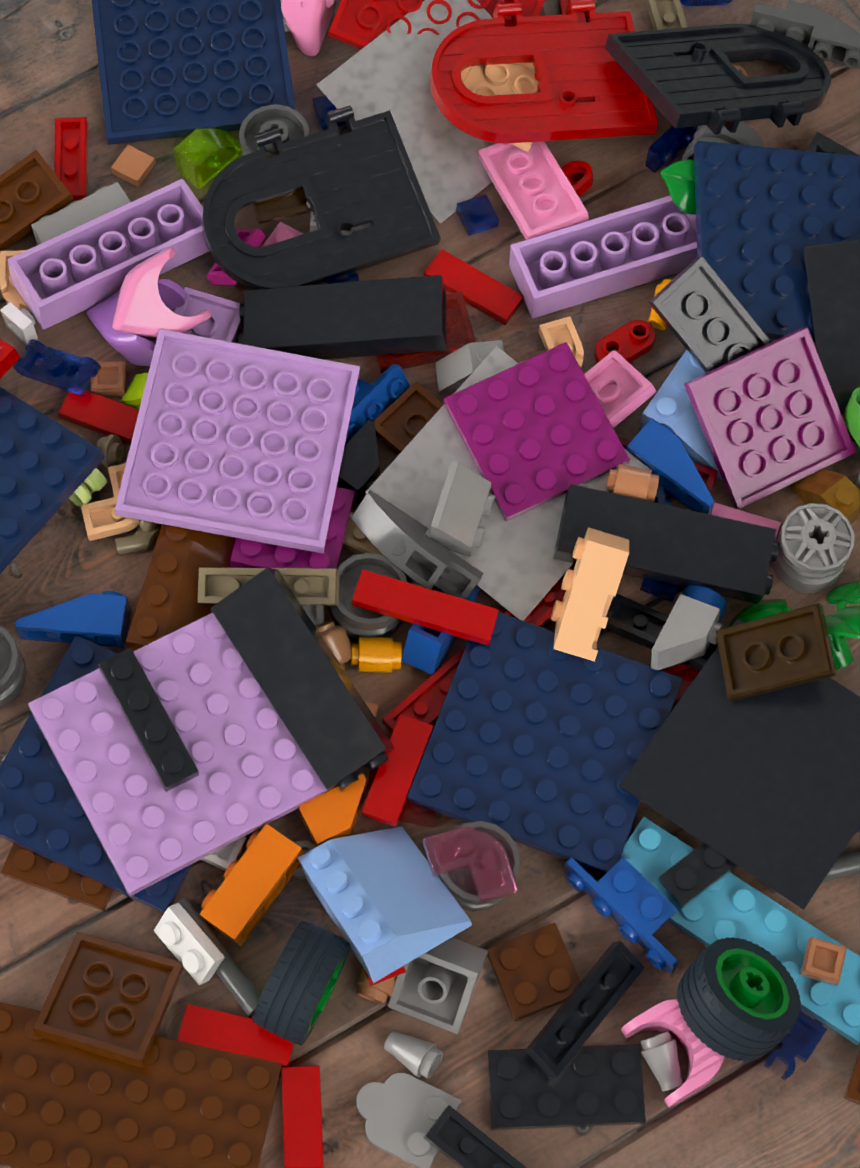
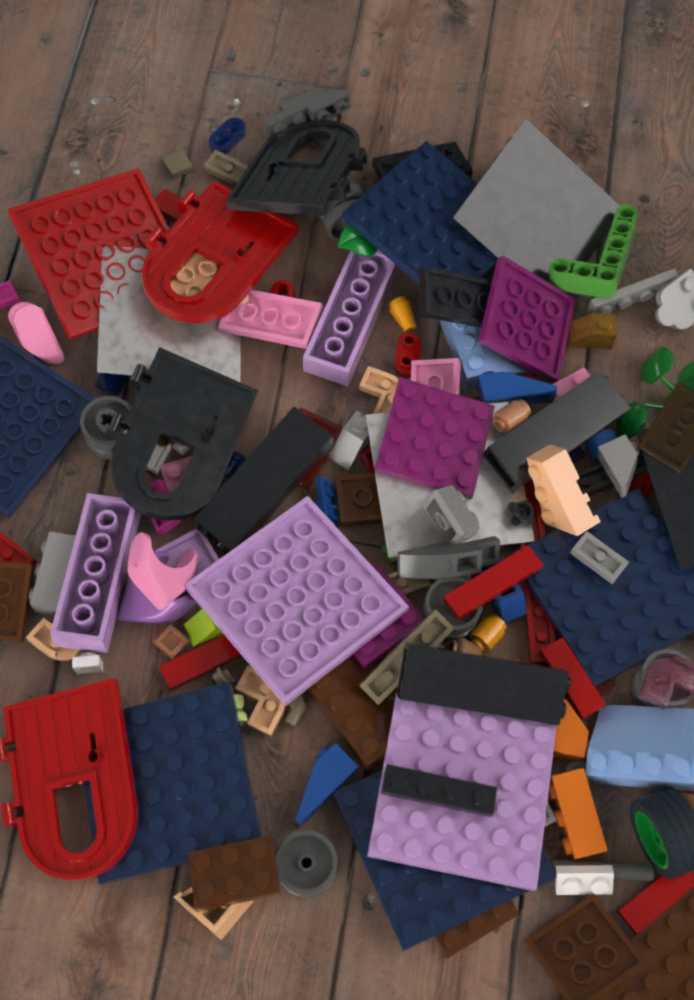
camera: 50 degrees left, 0 degrees up
(57, 367) = (140, 664): clear blue plate -> none
(133, 165) = (39, 515): nougat tile -> none
(205, 154) = (74, 469): clear neon green slope -> none
(360, 462) = (363, 542): black slope -> none
(477, 215) = (255, 360): clear blue plate -> none
(477, 287) = (307, 397): red tile -> none
(534, 571) = (527, 509): none -> black plate
(552, 691) = (599, 557): none -> light grey plate
(666, 147) = (309, 236): clear blue plate -> none
(813, 548) = (620, 359): light grey wheel -> none

